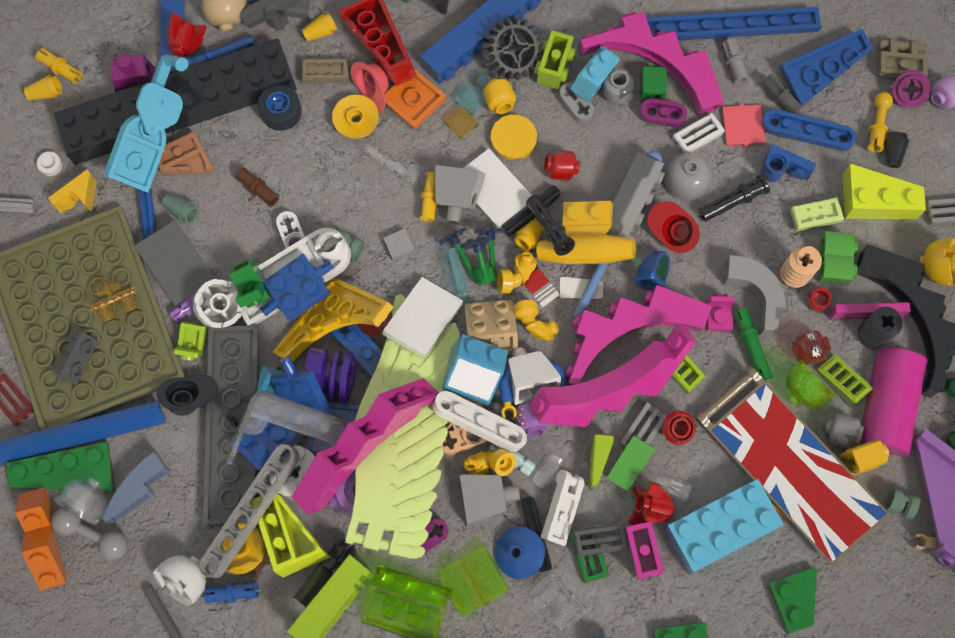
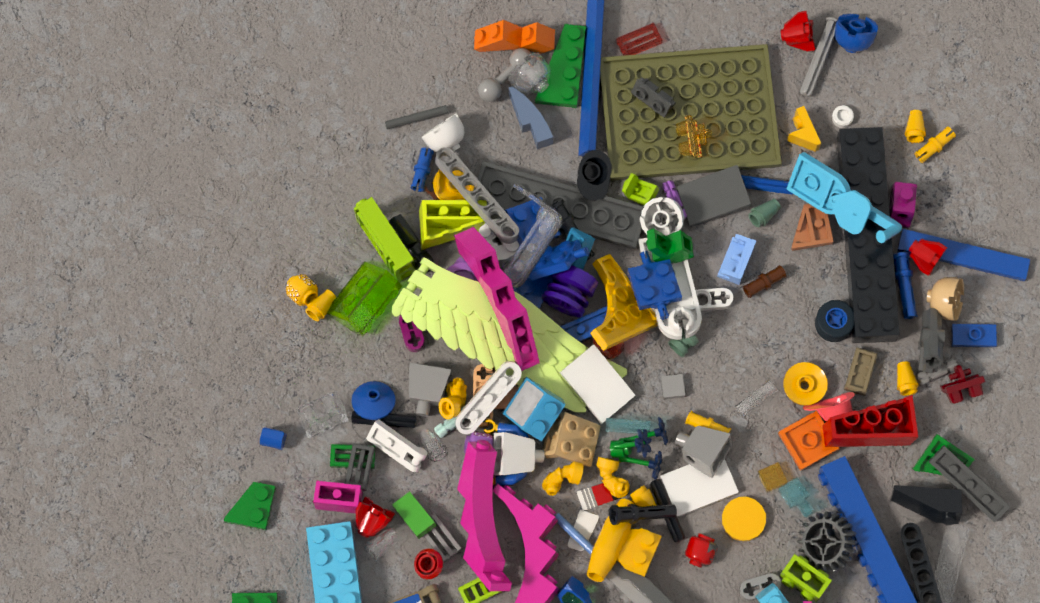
camera: 110 degrees right, 0 degrees up
(240, 220) = (736, 259): none -> light blue hinge
(473, 581) = (364, 357): clear neon green slope -> none
(499, 95) = (786, 517): yellow head -> none
(600, 451) = (430, 491): lime slope -> none

